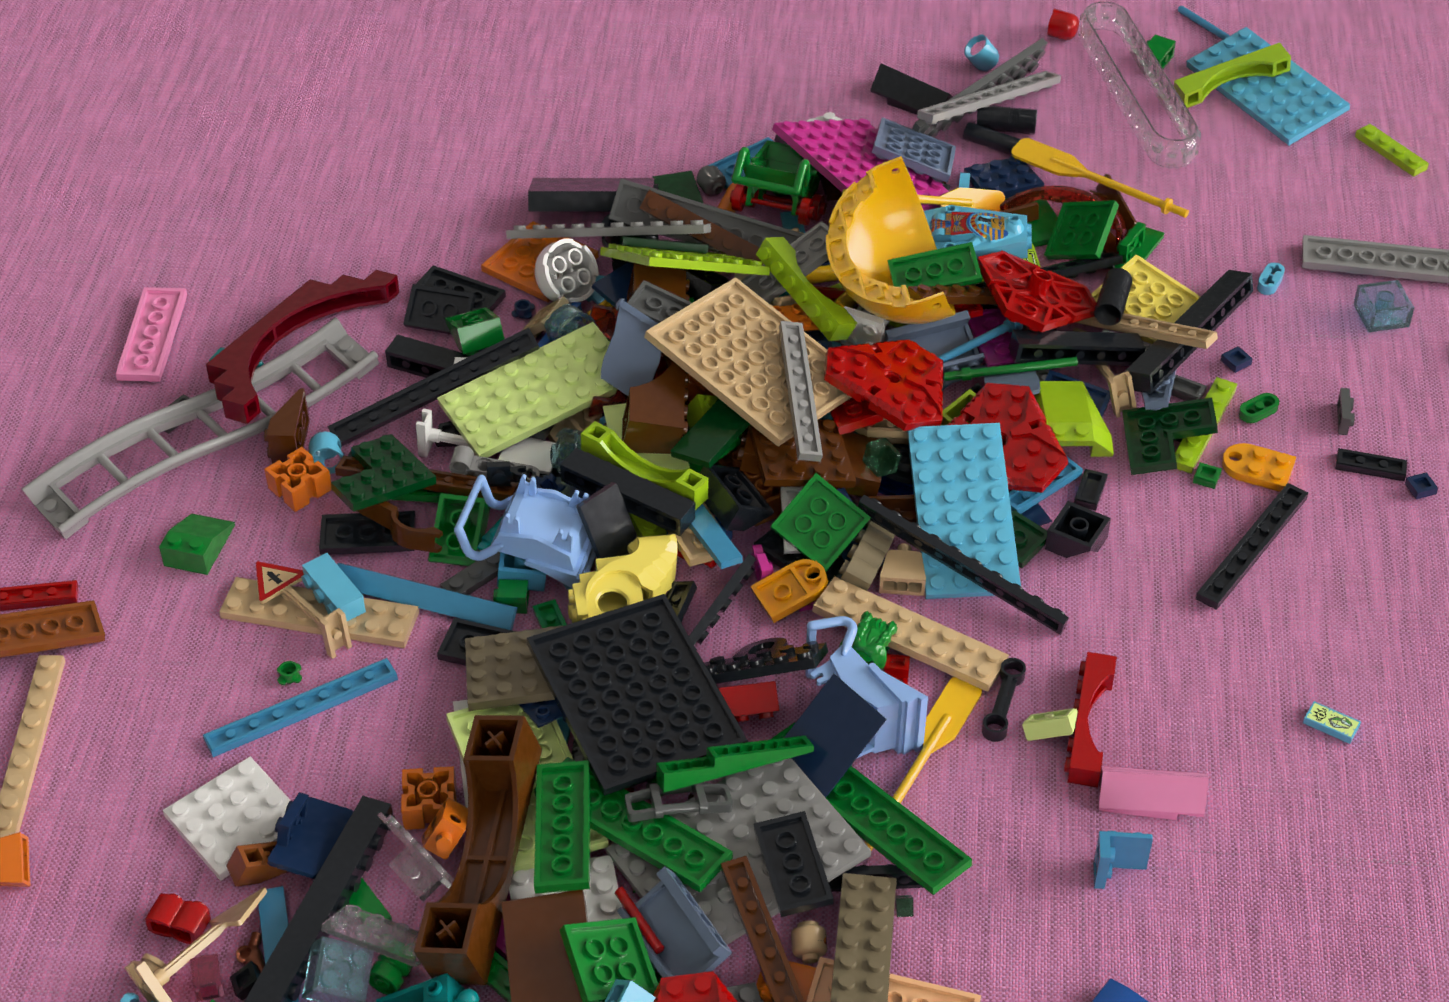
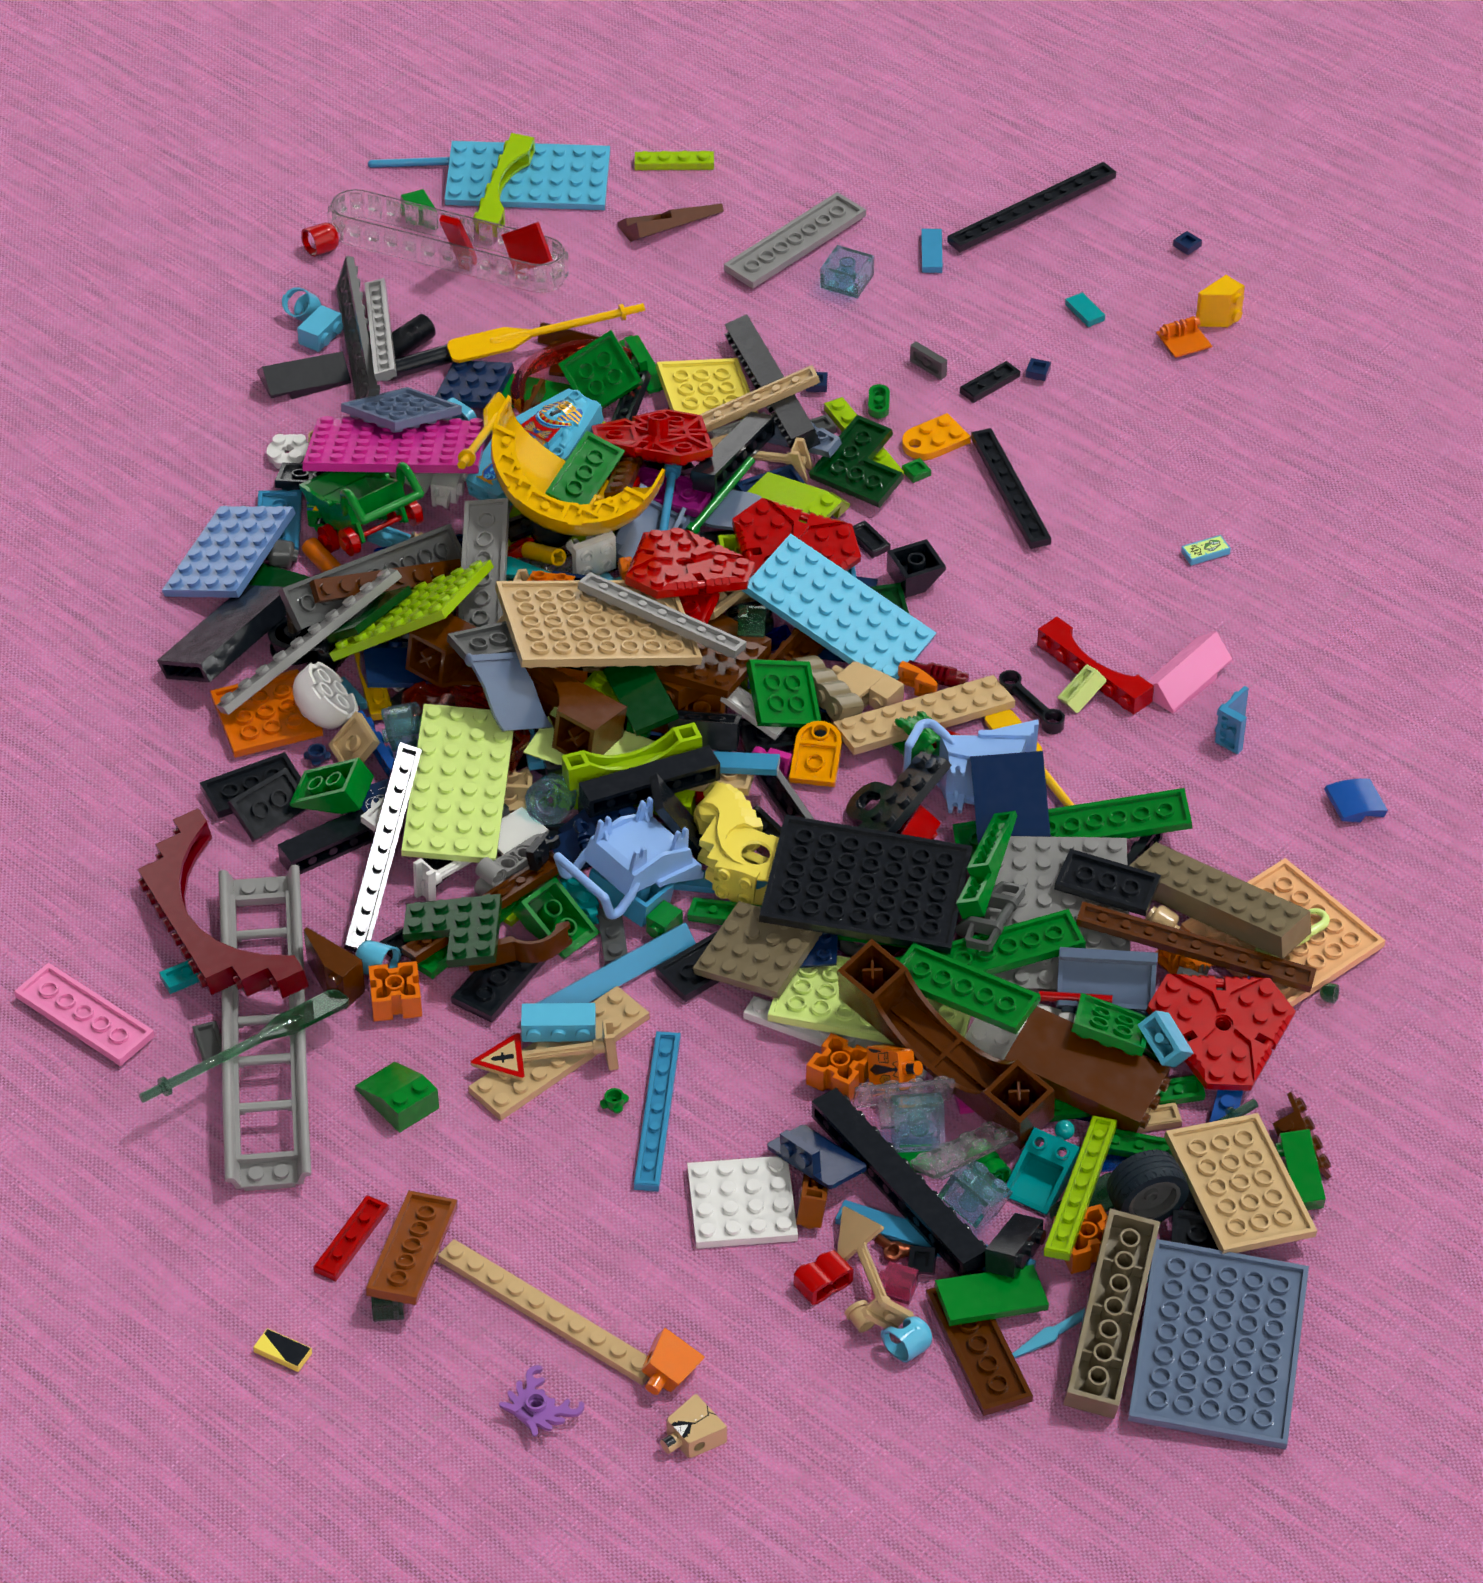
camera: 55 degrees left, 0 degrees up
(191, 432) = (280, 1026): none -> clear green piece
(396, 884) = (917, 1122): none -> clear light blue brick
(680, 153) = (228, 552): none -> medium blue plate
(827, 315) = (566, 560): lime arch -> none
(910, 594) = (886, 692): none -> tan brick
(947, 607) = (916, 678): none -> orange slope
(965, 73) = (320, 328): none -> medium azure brick
(965, 566) = (896, 643): black plate -> none
(972, 617) = (943, 674): none -> dark red hinge
(1113, 296) = (702, 398): black piece -> none
(1129, 76) = (455, 231): none -> red tile
(1175, 119) = (527, 244): none -> red tile
(1268, 277) = (751, 309): medium azure beam -> none
(1297, 174) = (643, 226): none -> reddish brown wedge

